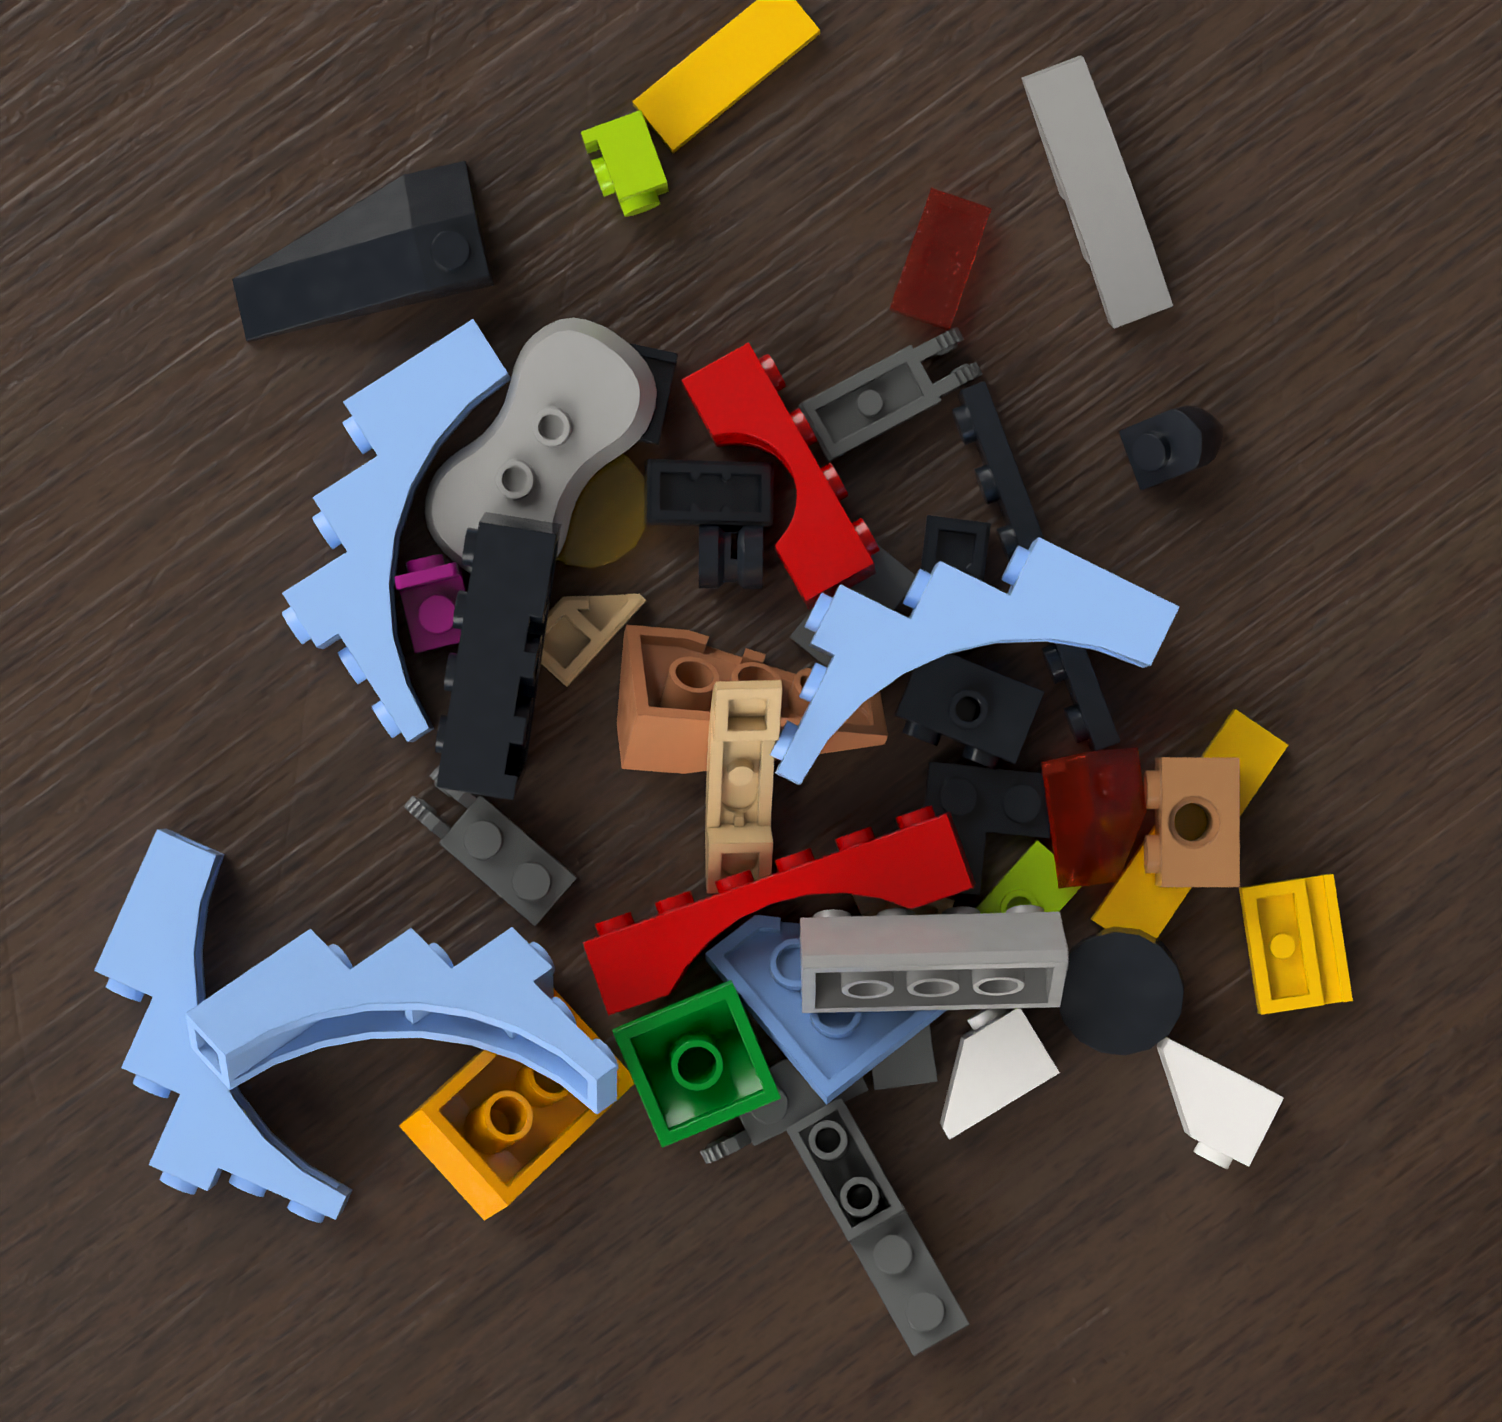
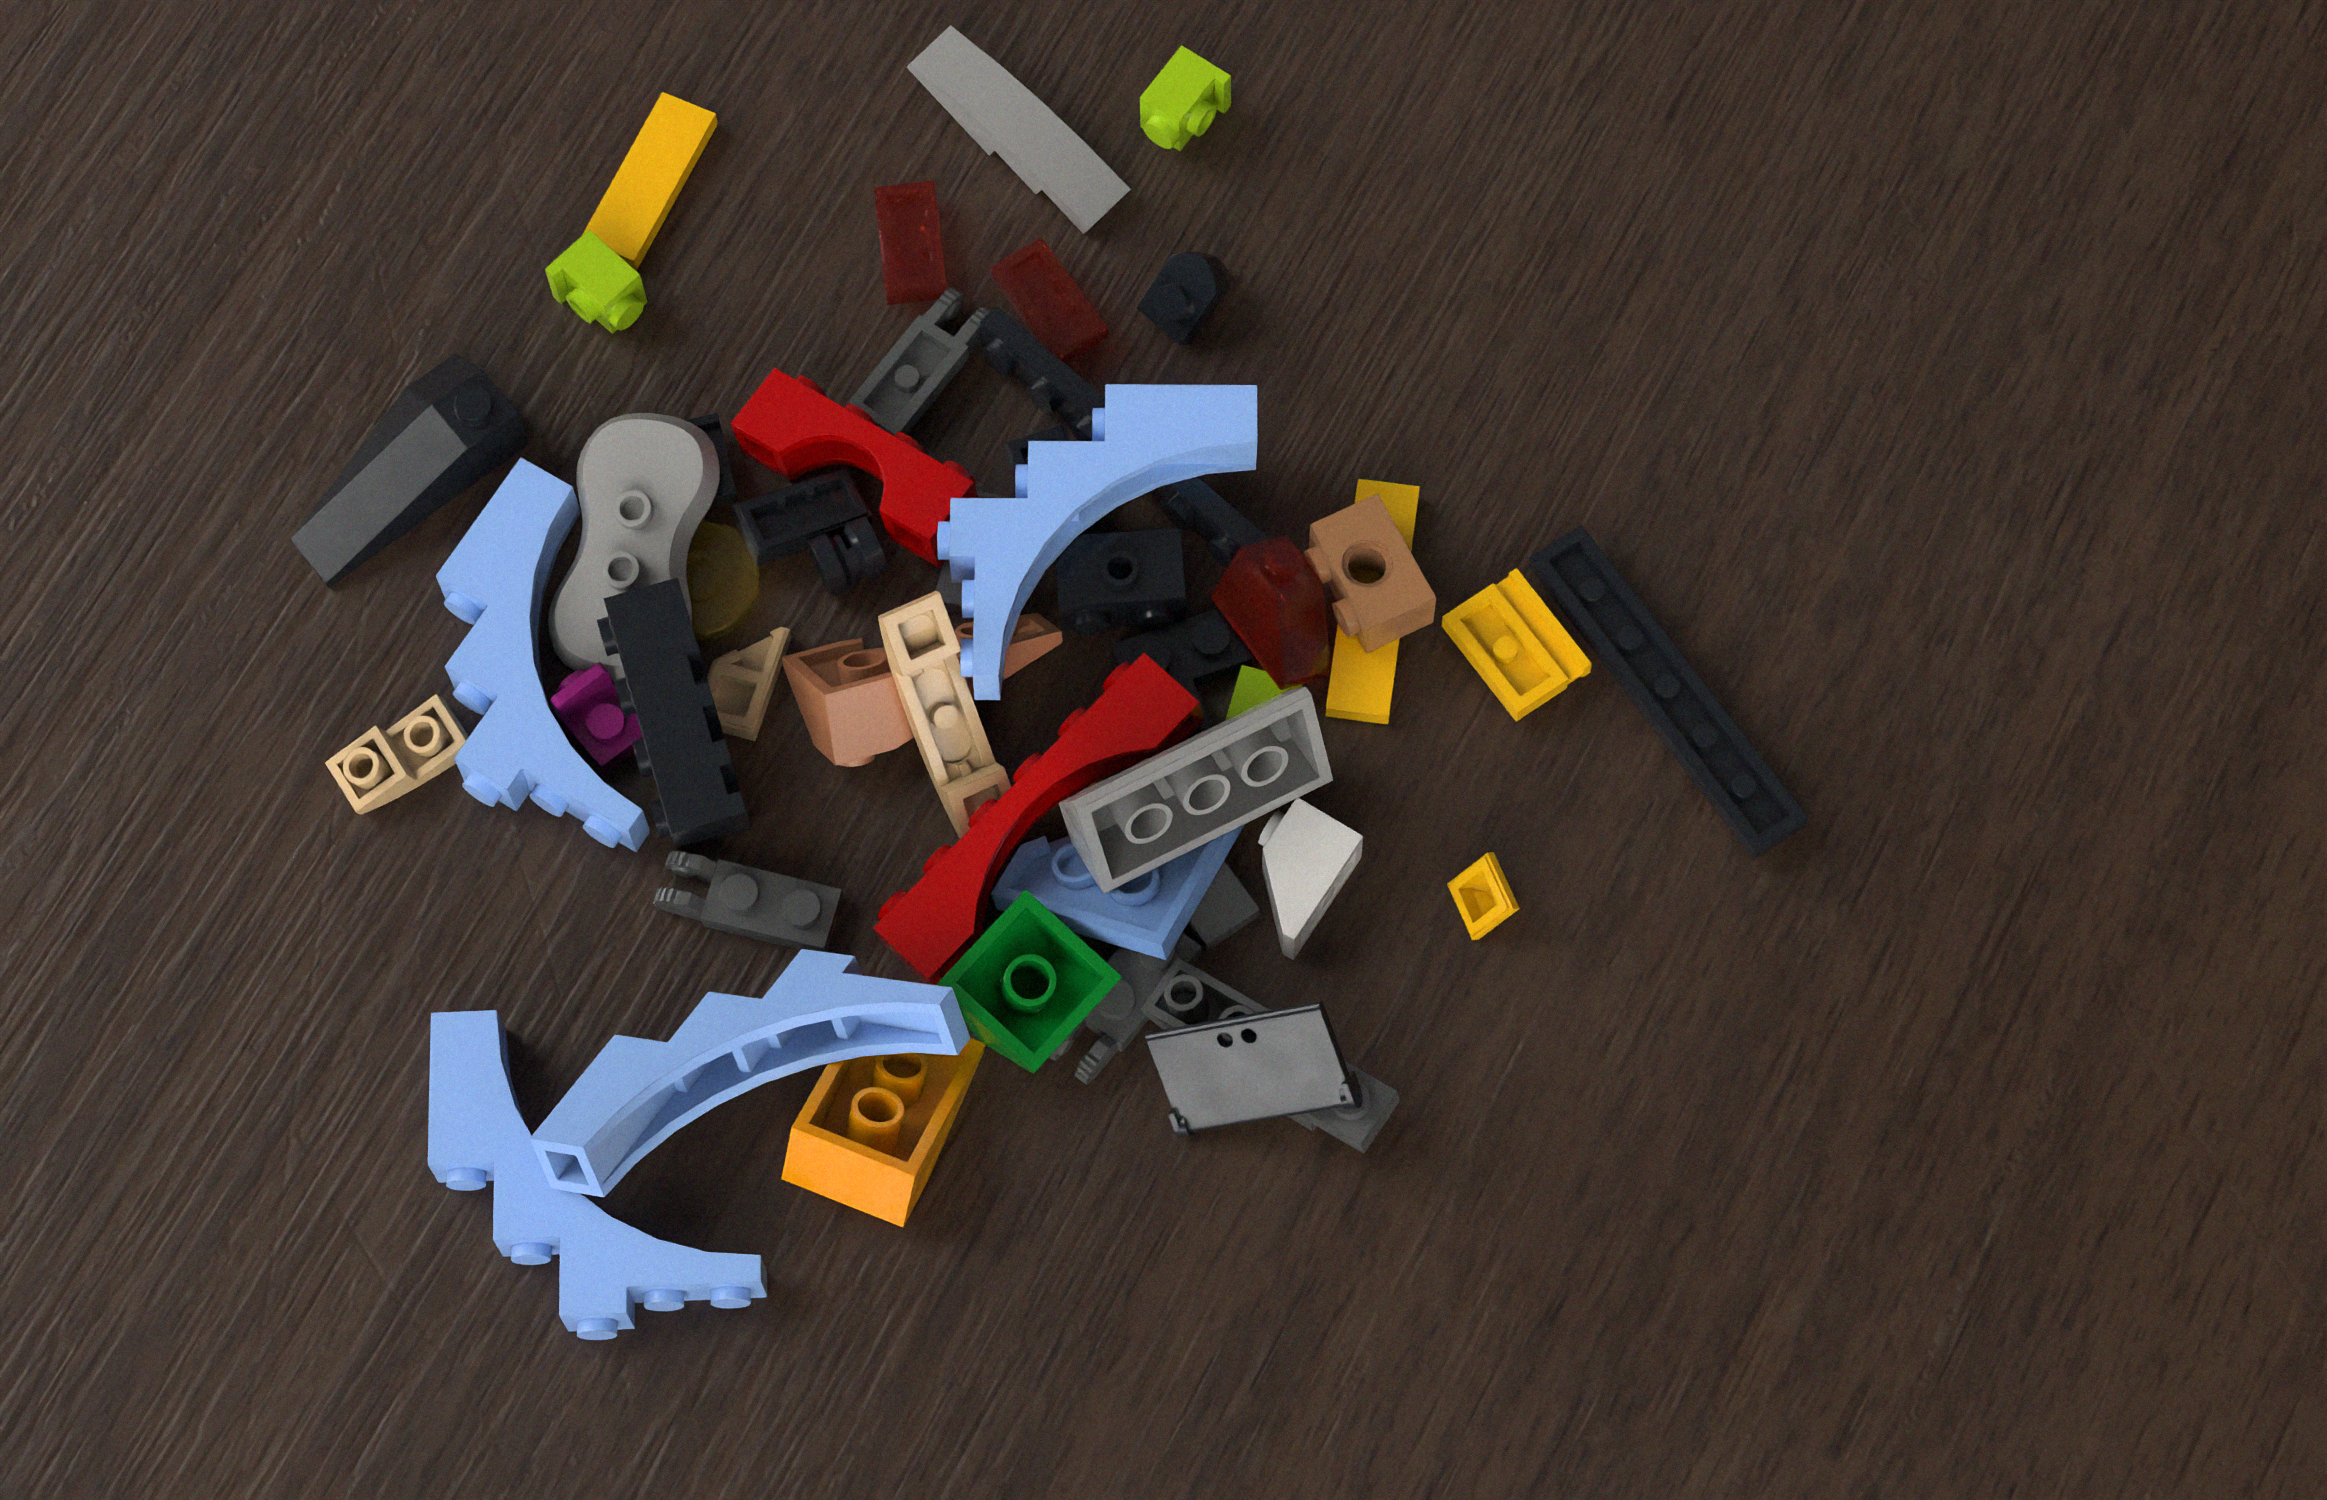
camera: 25 degrees left, 20 degrees down
(241, 548) = (397, 760): none -> tan slope
(852, 1246) = (1278, 1074): none -> door
(1039, 386) = (1049, 301): none -> clear red plate
(1121, 991) = (1384, 754): black tile -> none
(1142, 1168) = (1483, 896): none -> yellow slope
(1217, 1105) = (1517, 806): white slope -> none
(1266, 239) = (1183, 99): none -> lime brick
(1407, 1056) = (1668, 692): none -> black plate

